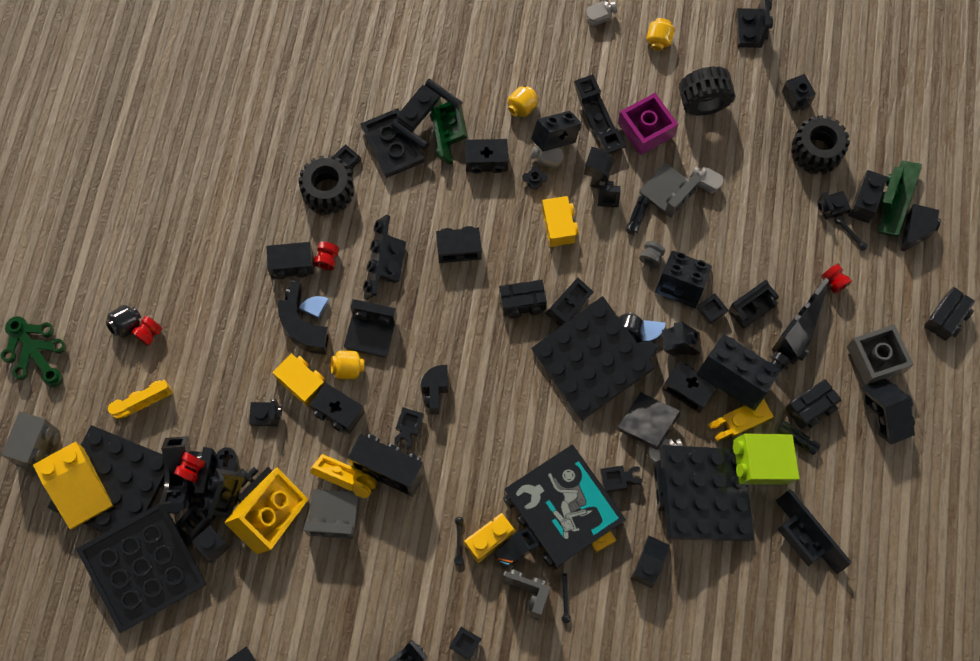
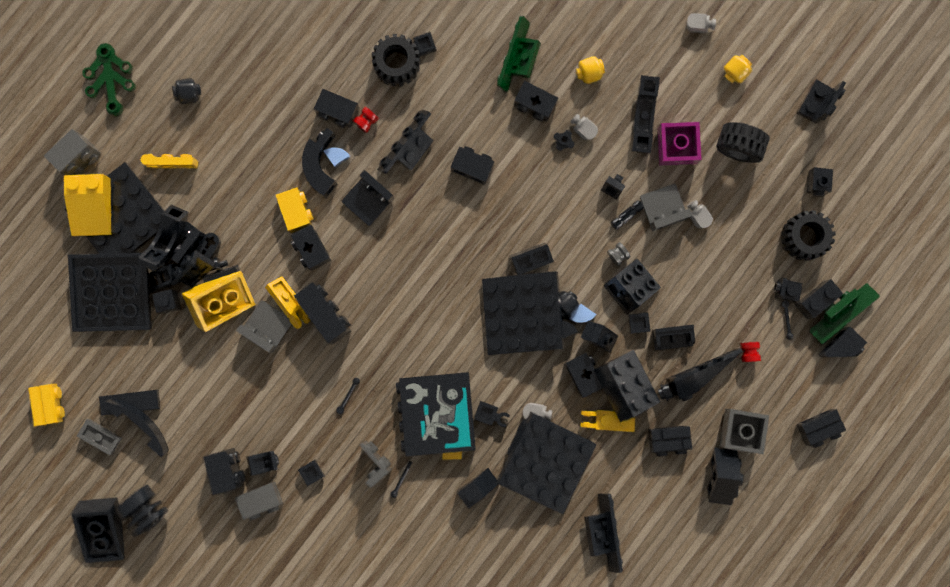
camera: 25 degrees right, 15 degrees up
(147, 330) = (200, 108): red wheel -> none
(192, 462) = (175, 239): red wheel -> none
(265, 413) = (256, 222): black bracket -> none
(346, 365) = (335, 217): yellow head -> none
(391, 148) = (467, 50): black plate -> none
(408, 424) = (357, 288): black plate -> none
(419, 107) = (502, 33): black plate -> none
(434, 382) = (394, 267): black brick -> none
(489, 538) = (369, 407): yellow brick -> none
(516, 548) = (382, 426): black leg -> none
(522, 298) = (497, 236): black brick -> none
(556, 131) = (601, 111): black brick -> none
(559, 222) = (561, 188): yellow brick -> none
(598, 166) = (617, 161): black brick -> none
(649, 421) = (537, 384): black tile -> none
(766, 459) = (606, 462): lime brick -> none
(799, 438) = (643, 457): black axle -> none

